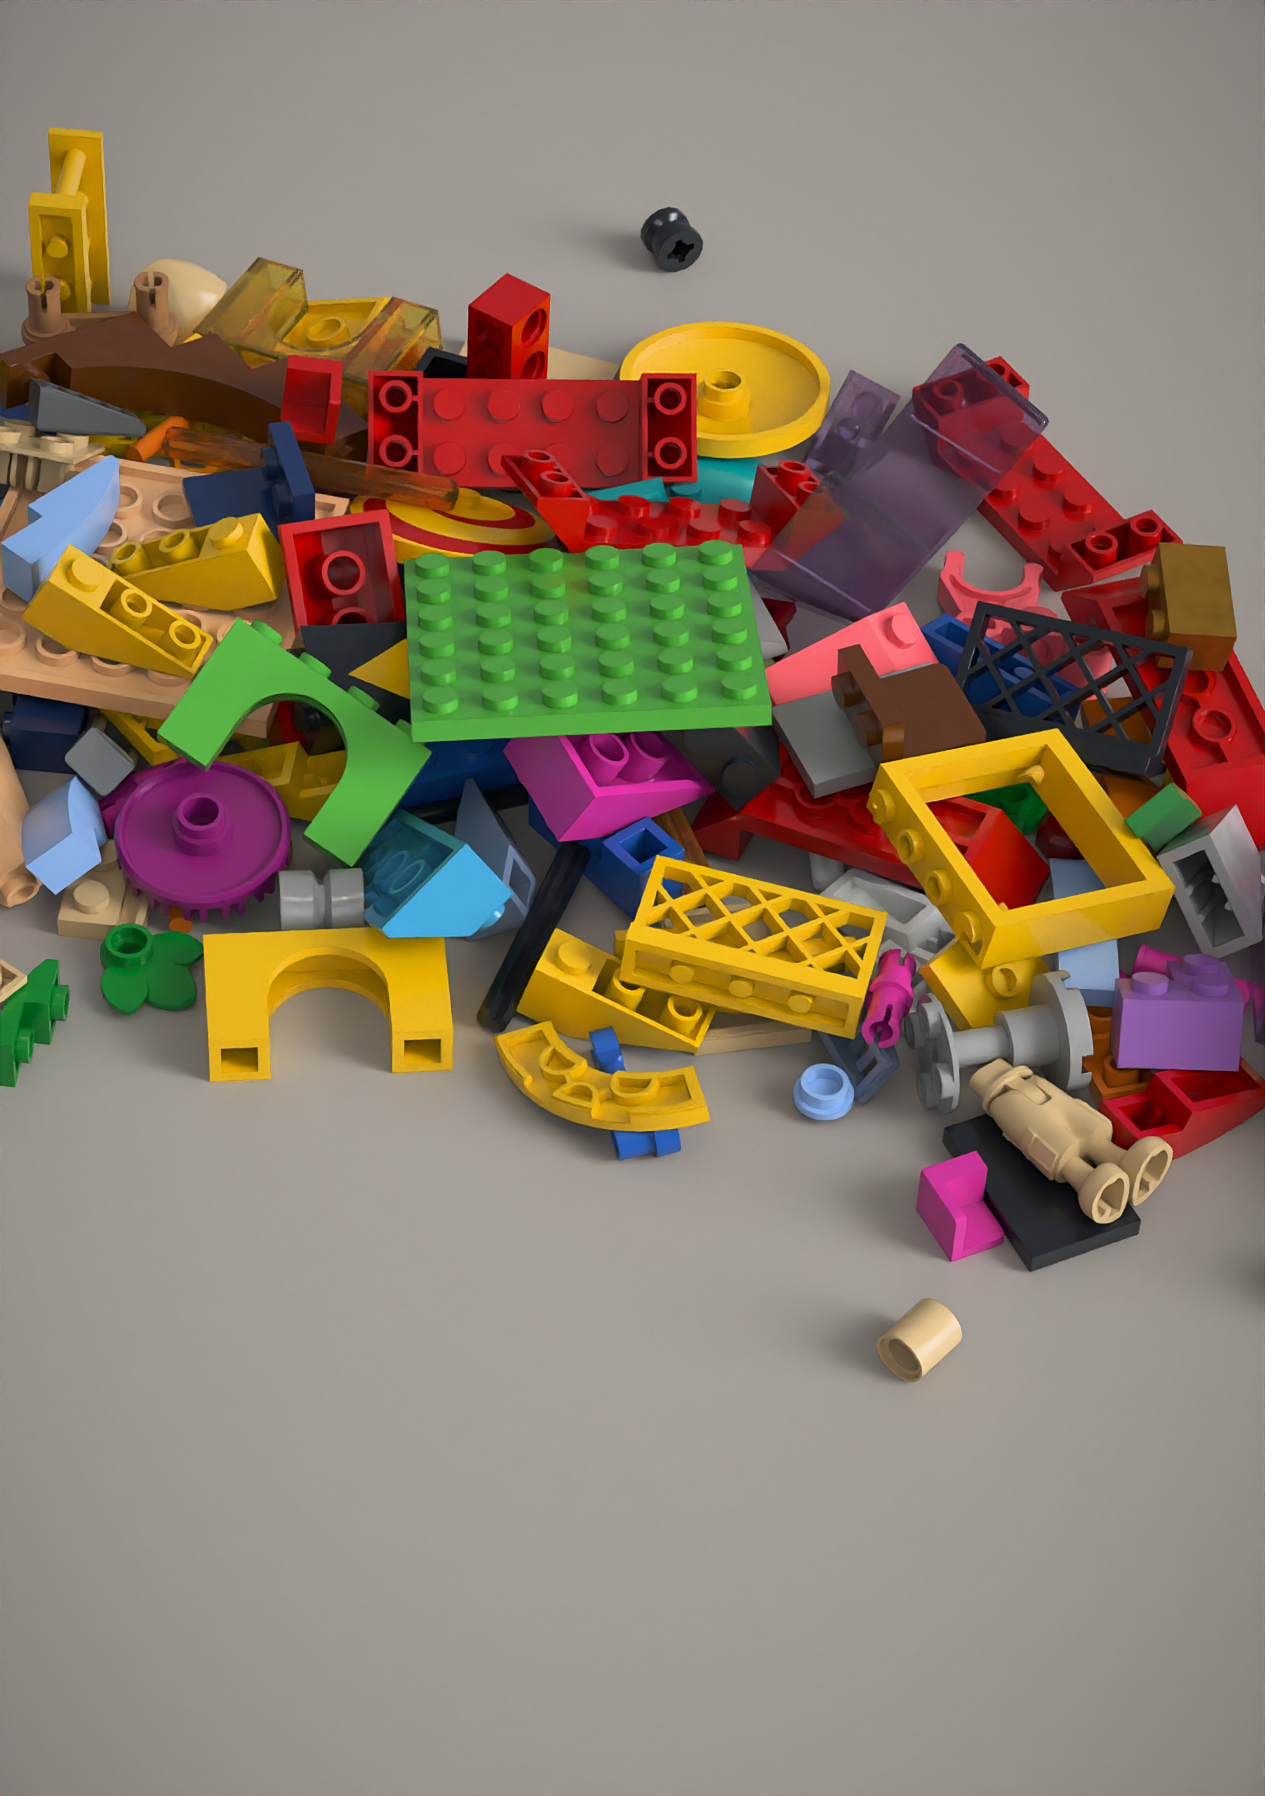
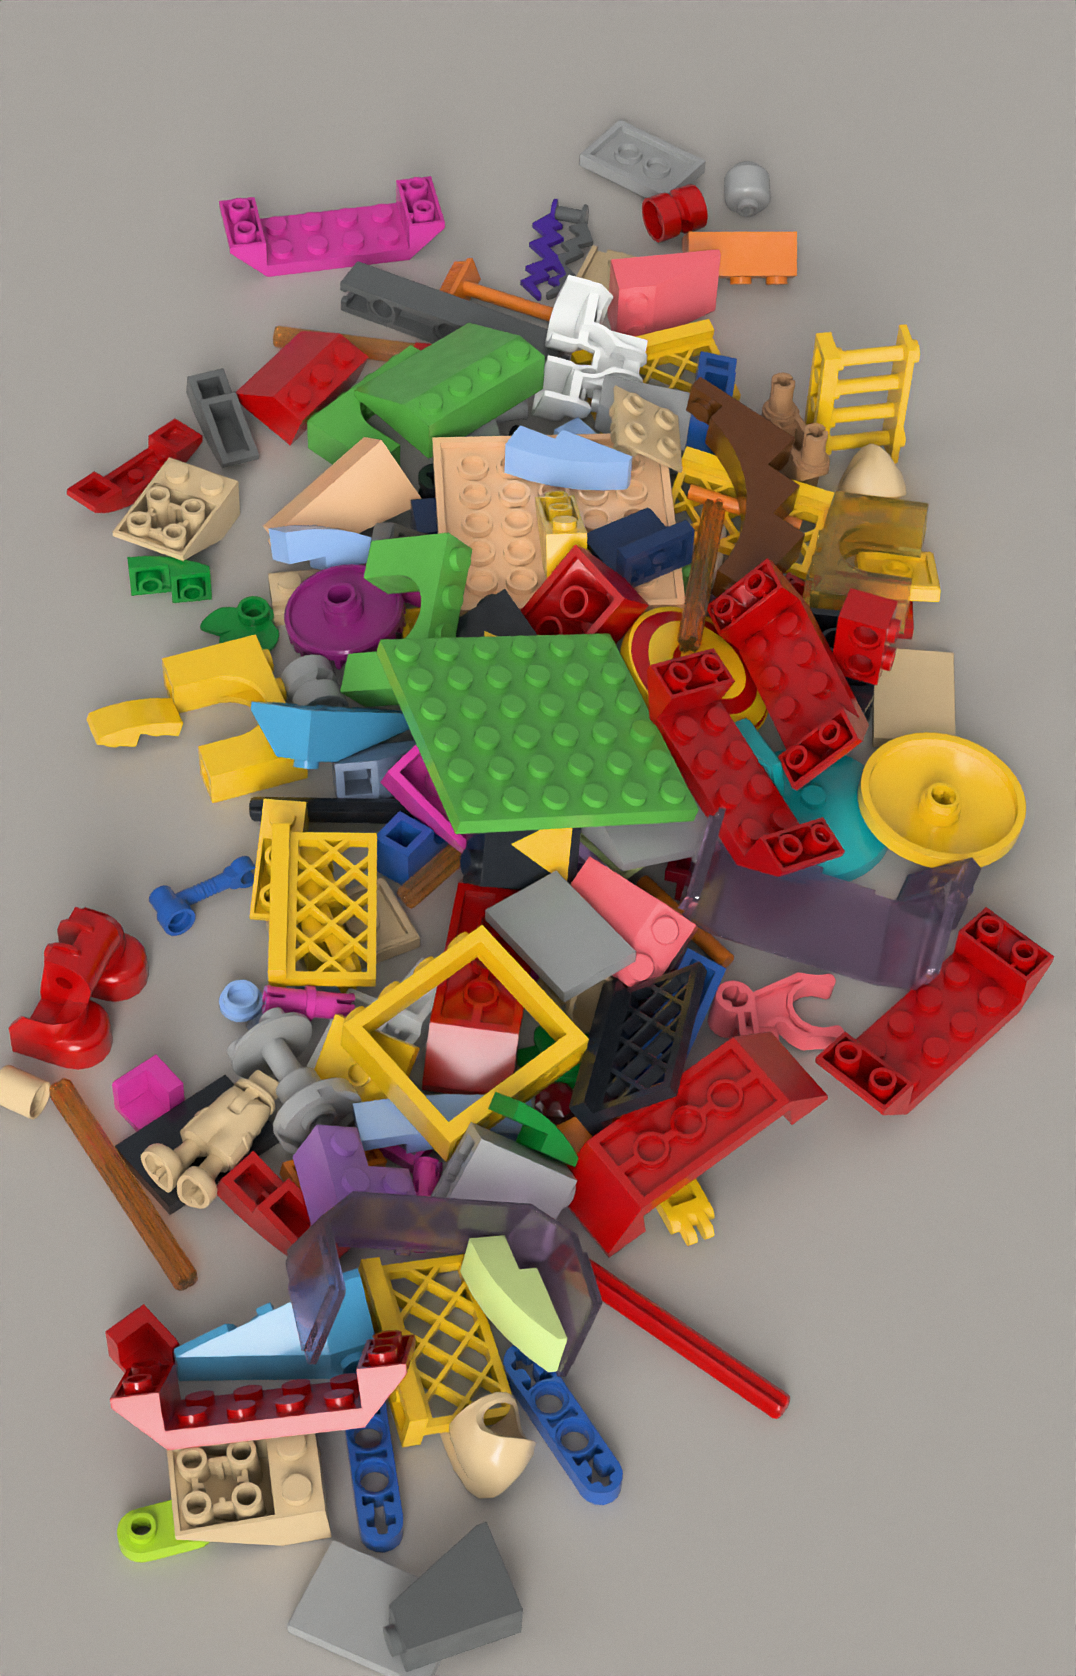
camera: 75 degrees right, 5 degrees up
(68, 411) = (687, 440): dark grey slope -> none
(112, 619) = (490, 505): yellow slope -> none
(291, 1111) = (125, 721): none -> yellow slope
(312, 398) = (742, 549): red panel -> none
(619, 1102) = (191, 864): yellow tile -> none
(781, 1196) = (87, 962): none -> red piece
(903, 712) = (552, 933): reddish brown bracket -> none
(1091, 1263) = (123, 1185): none -> clear orange axle
(1190, 603) = (739, 1091): pearl gold brick -> none

